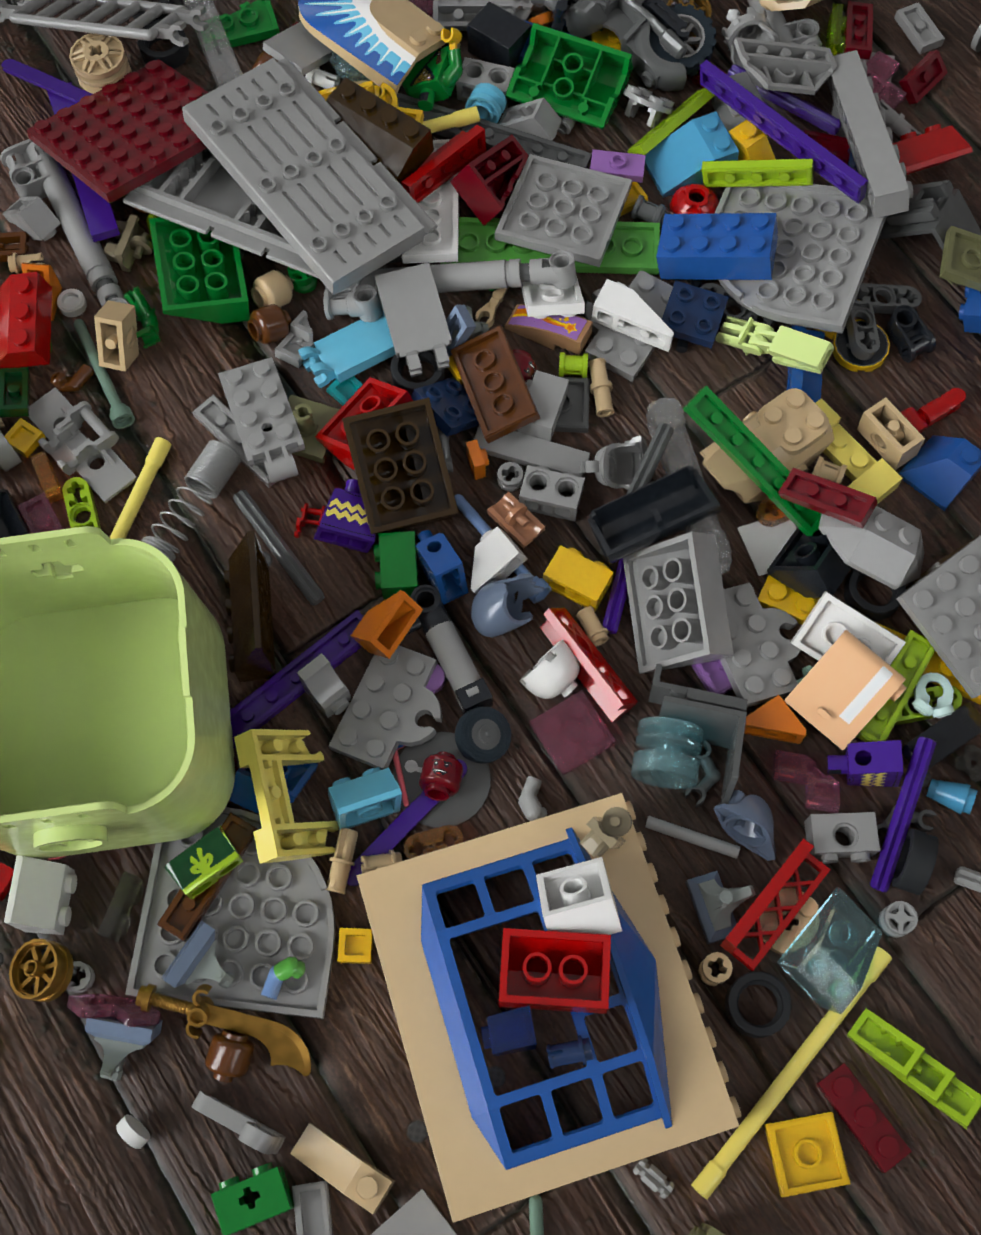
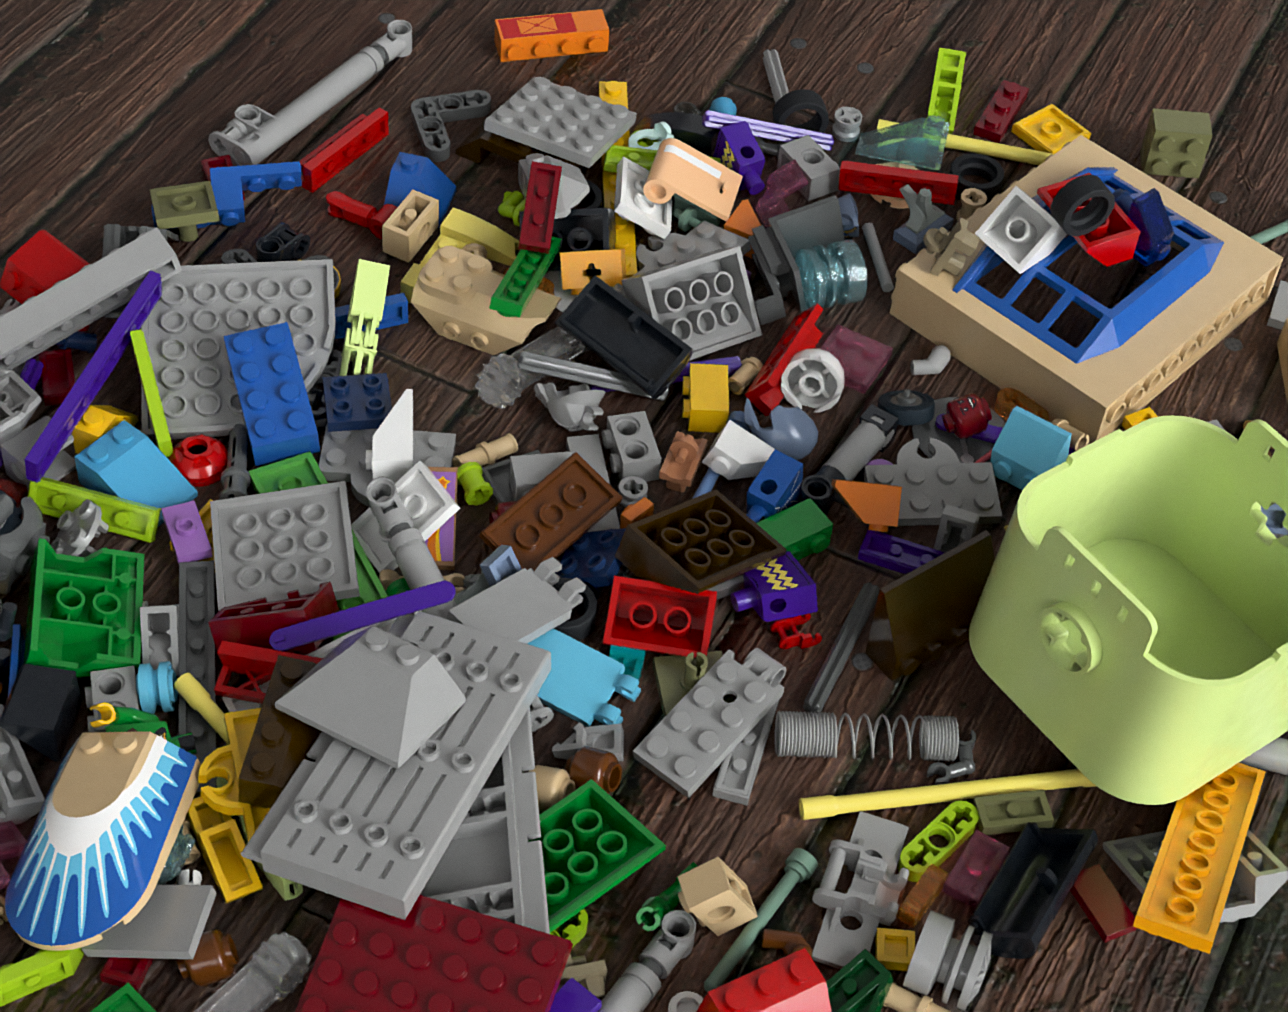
camera: 125 degrees left, 20 degrees down
(349, 154) = (376, 695): none -> light grey slope
(441, 197) = (362, 616): none -> dark purple piece
(536, 931) = (1073, 195): none -> black tyre
(765, 549) = (575, 266): none -> light orange brick

